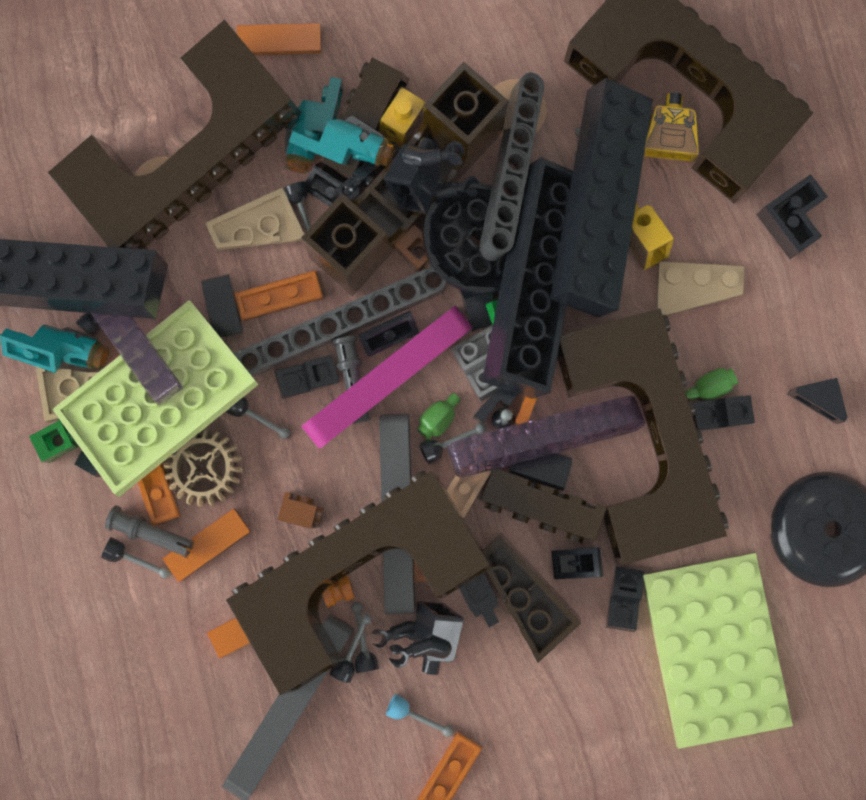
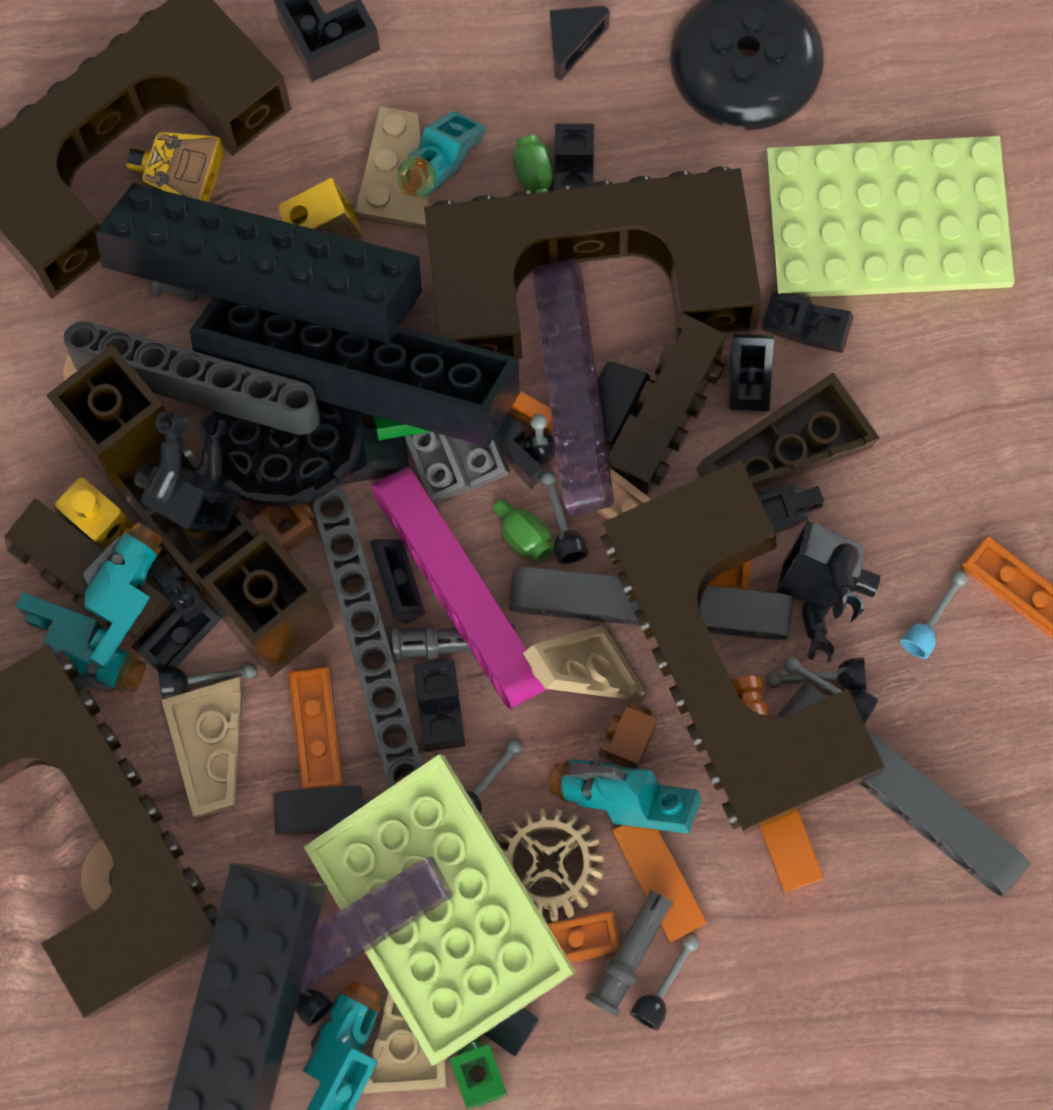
camera: 75 degrees left, 10 degrees down
(256, 514) = (626, 794): none -> teal plate
(341, 473) = (584, 664): none -> tan wing
(709, 313) = (439, 154): none -> teal plate

